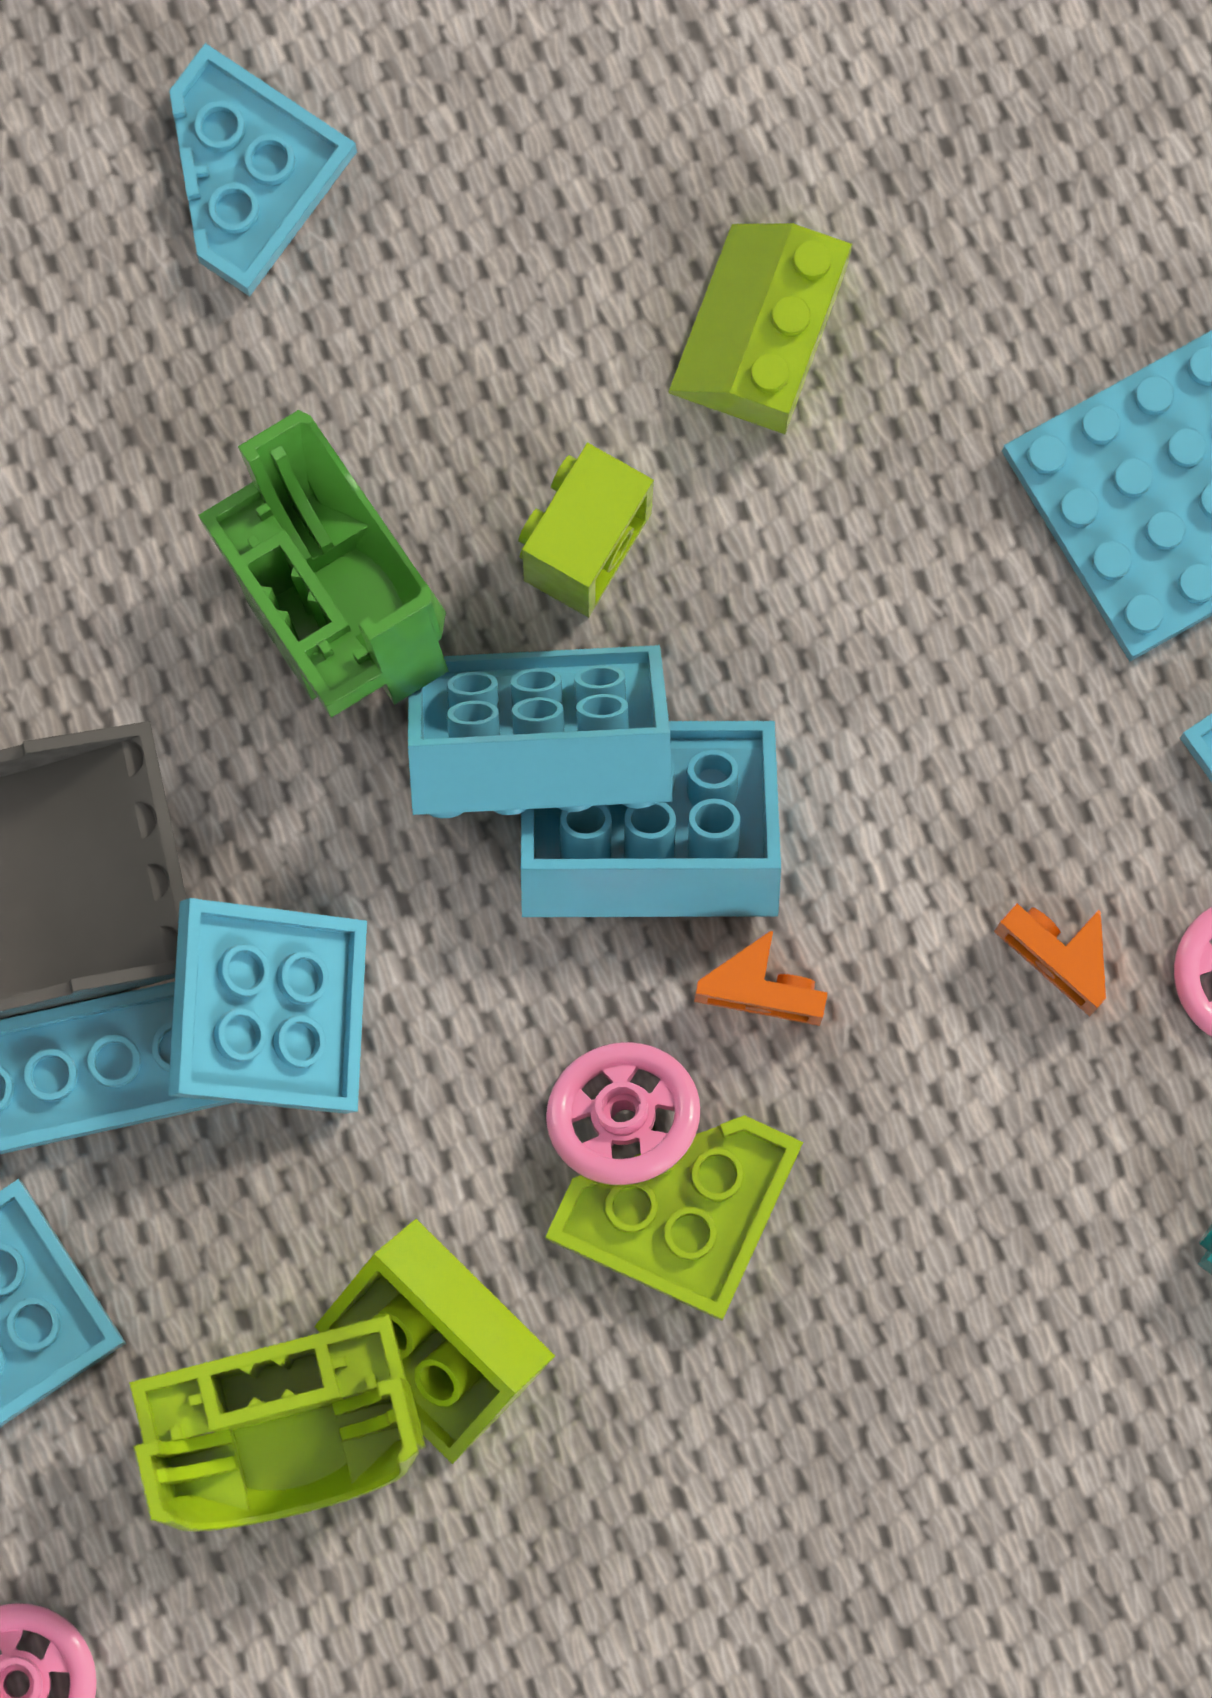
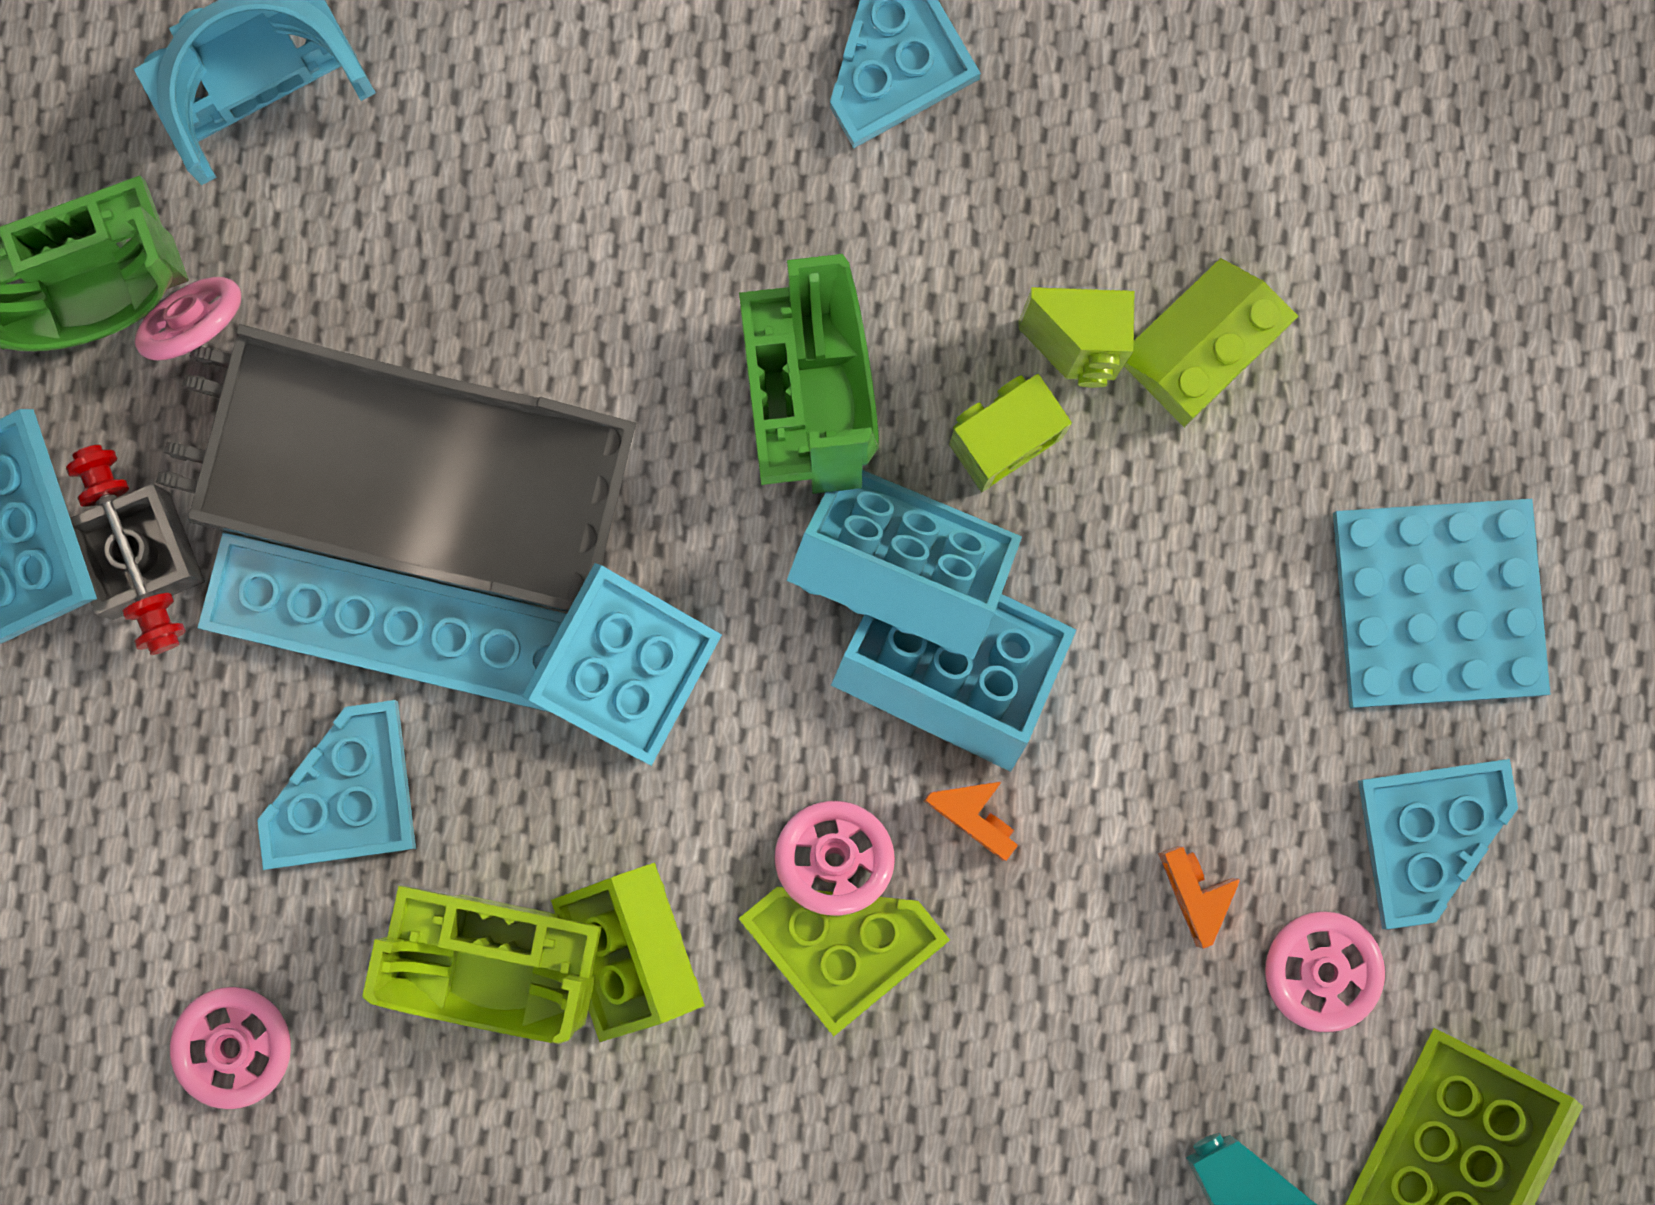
camera: 25 degrees right, 5 degrees up
(612, 374) = (1081, 331): none -> lime slope

